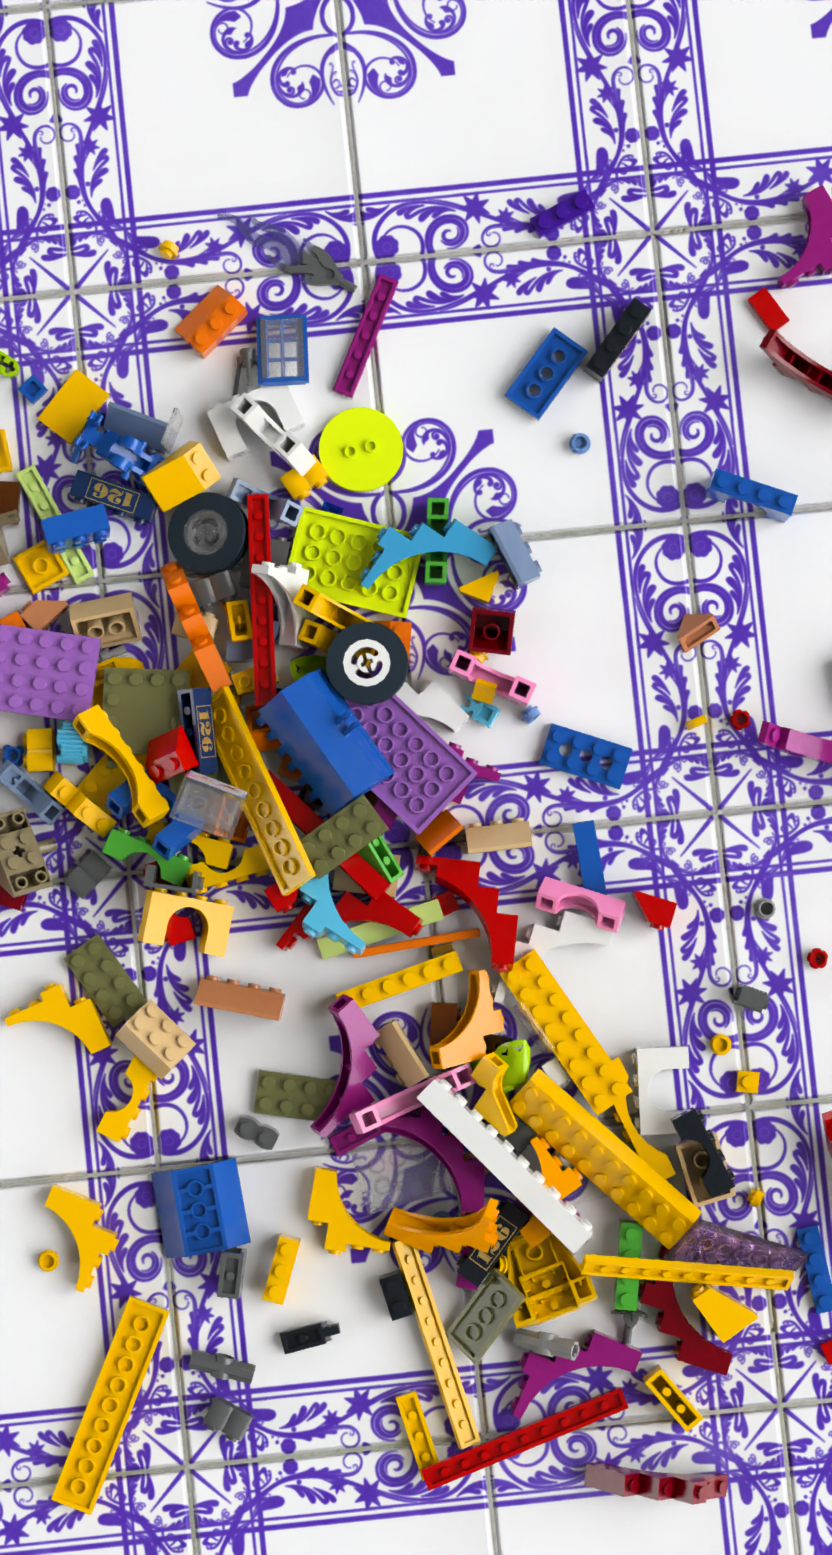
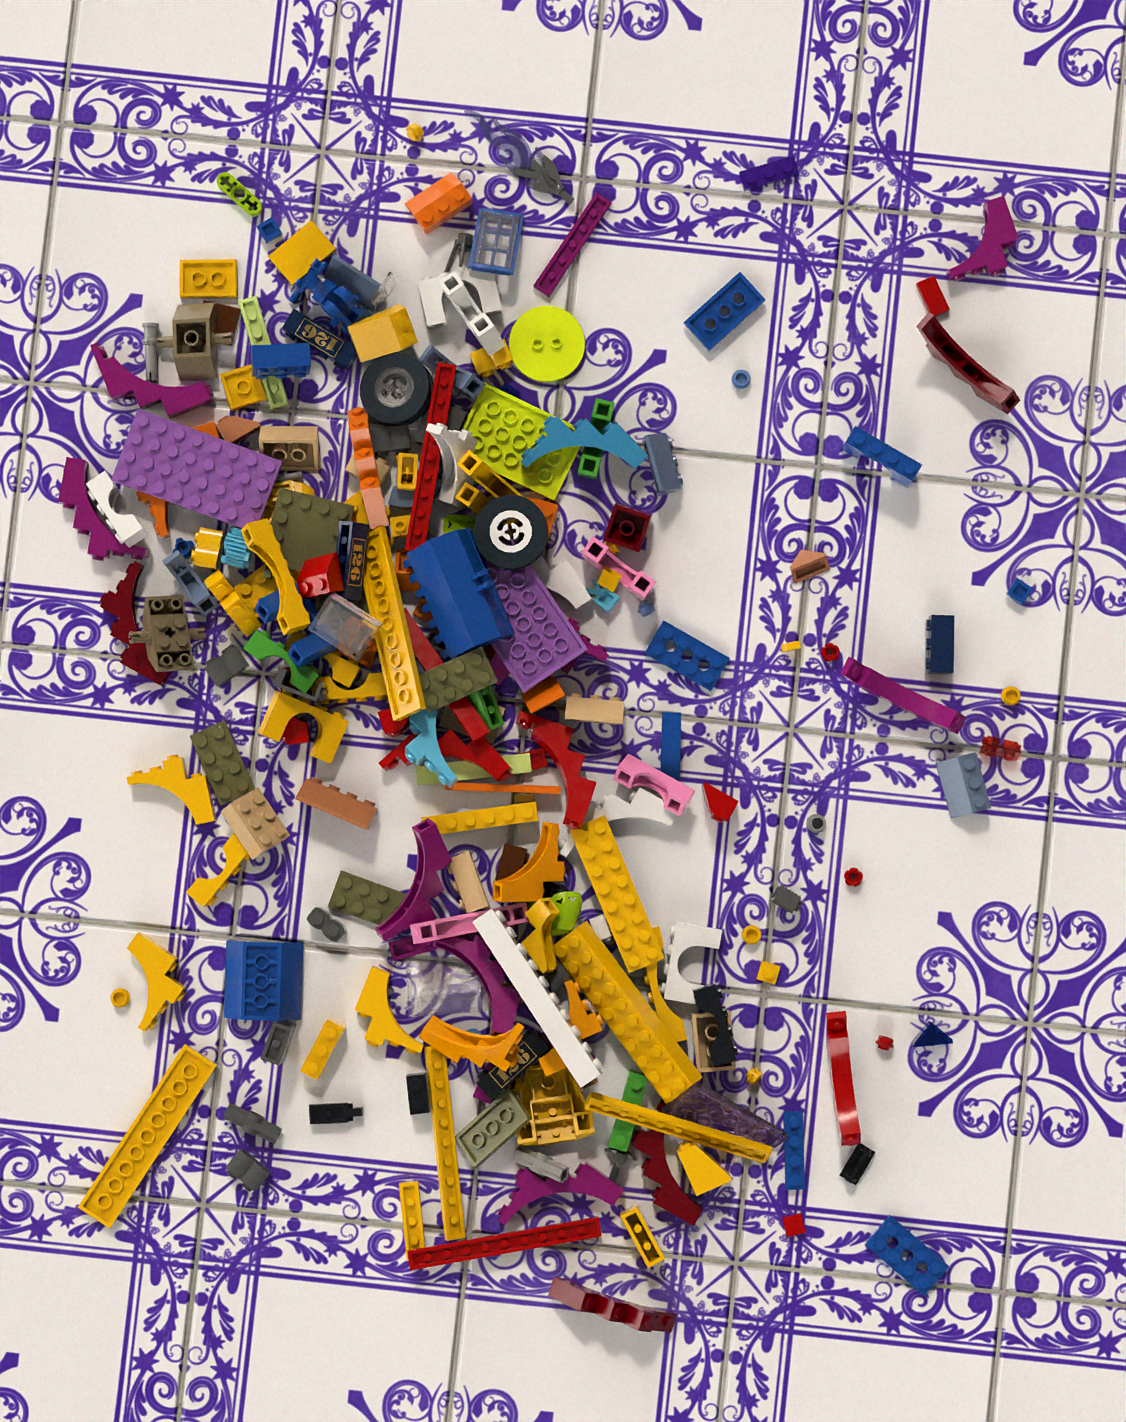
camera: 15 degrees right, 0 degrees up
(481, 588) = (626, 488): yellow slope -> none
(532, 1027) = (589, 884): clear piece -> none
(617, 340) = (793, 295): black brick -> none

